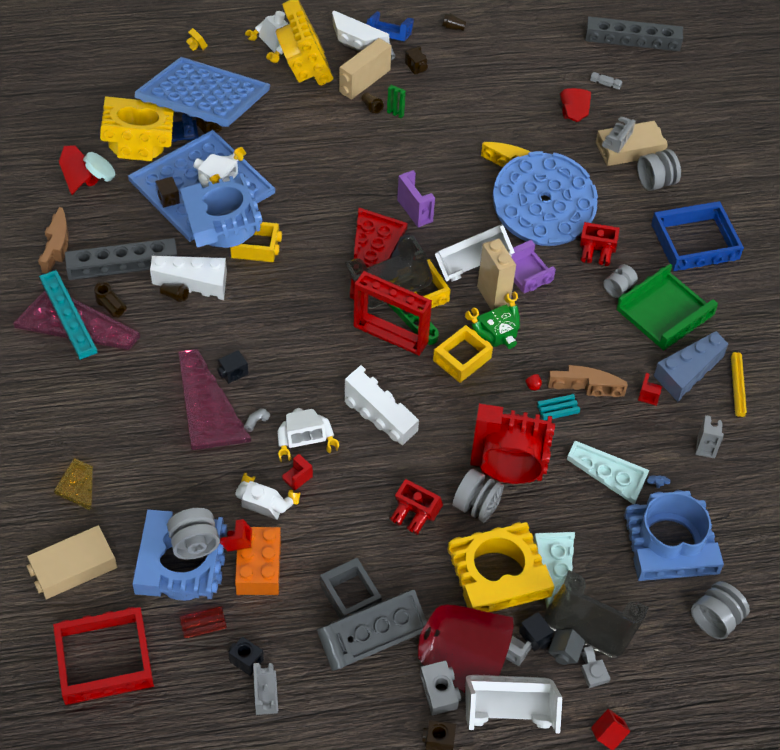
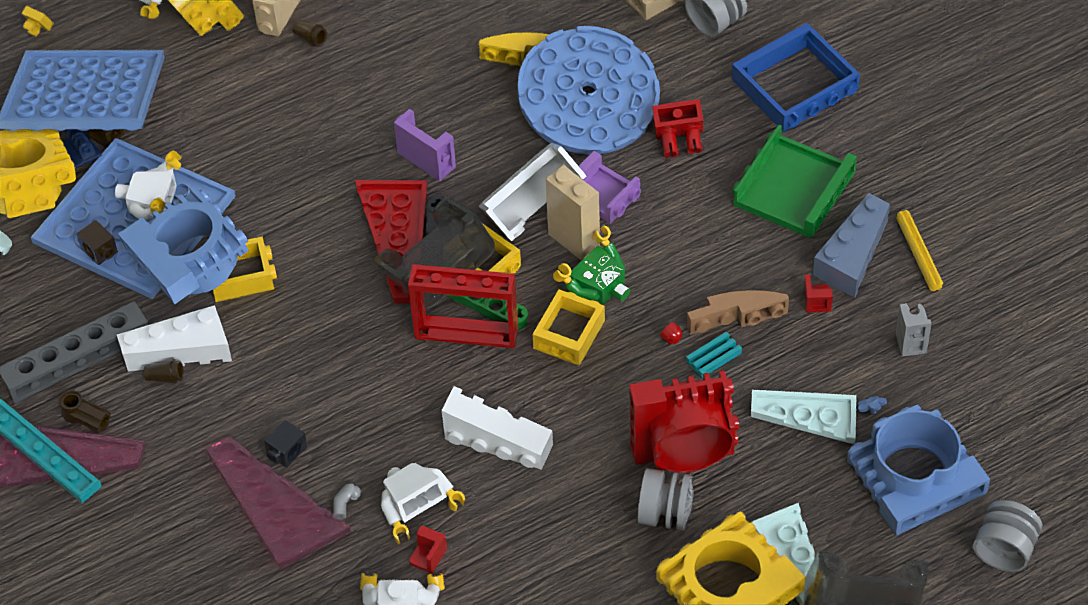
camera: 15 degrees left, 0 degrees up
(393, 99) = (334, 21): green tile -> none
(416, 499) = (593, 531): red brick -> none
(620, 281) = (725, 167): light grey wheel -> none

